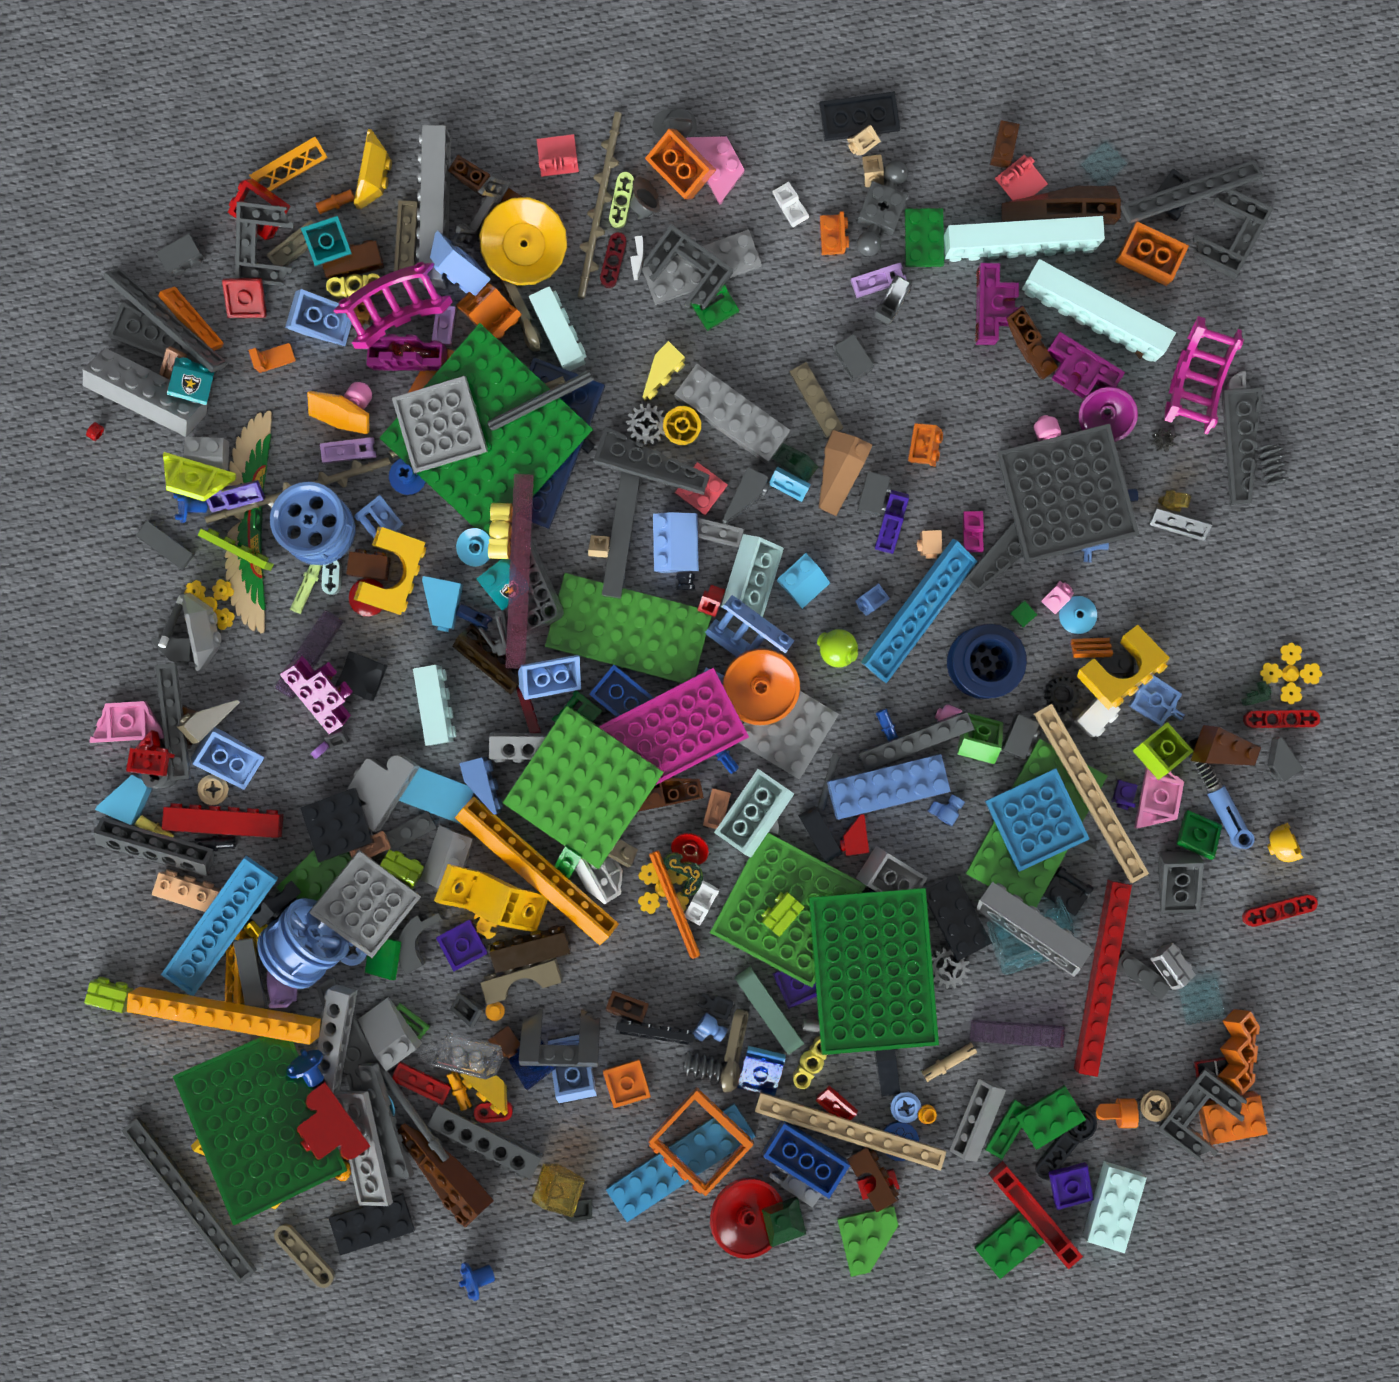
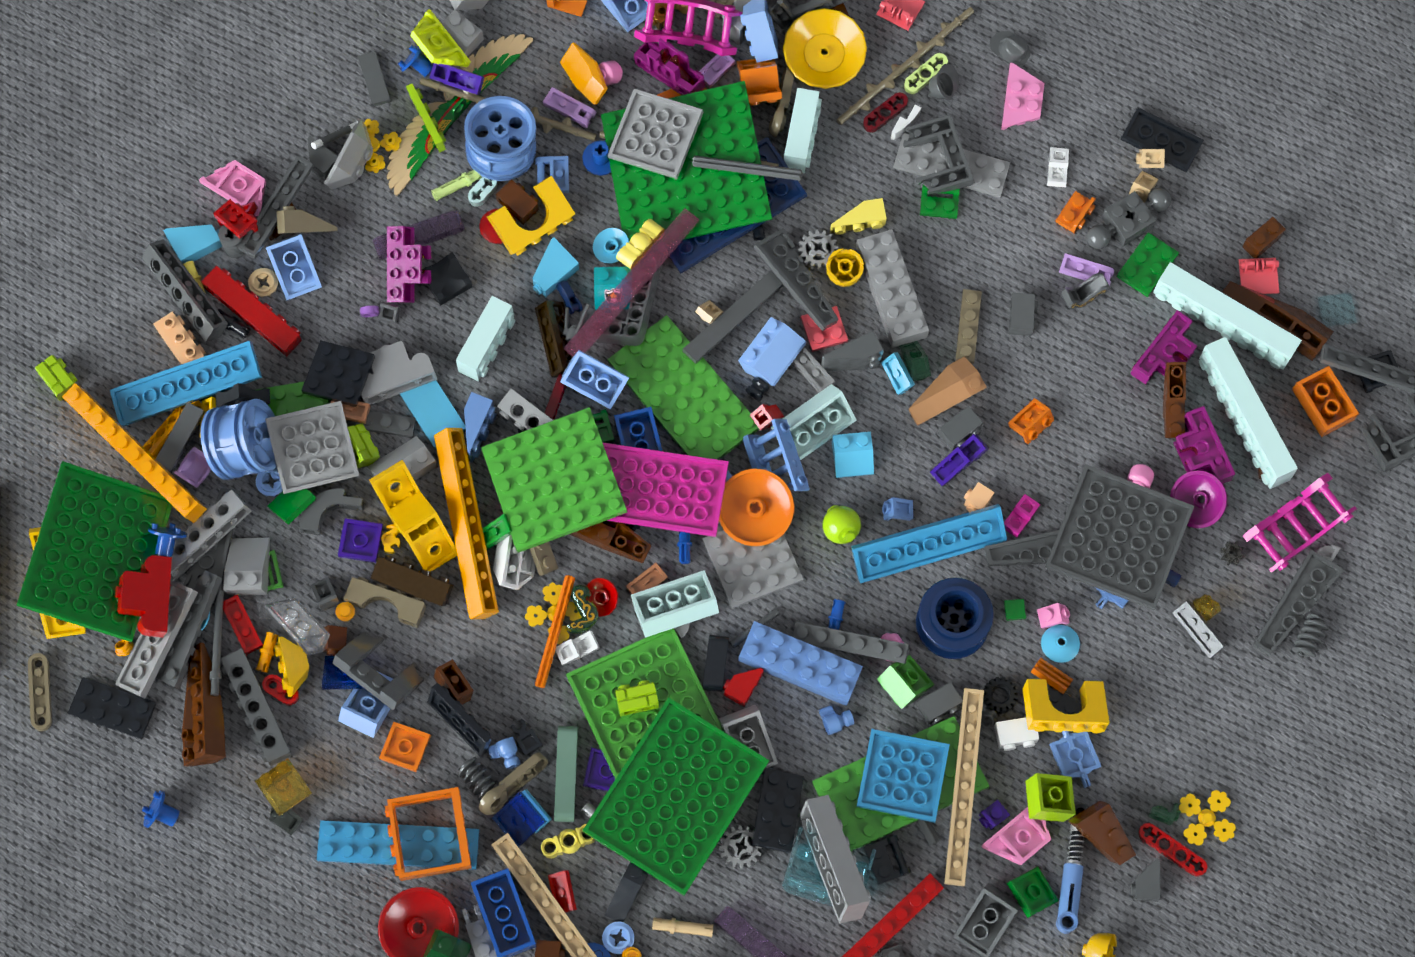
camera: 35 degrees right, 15 degrees down
(680, 164) = (991, 76): orange brick -> none

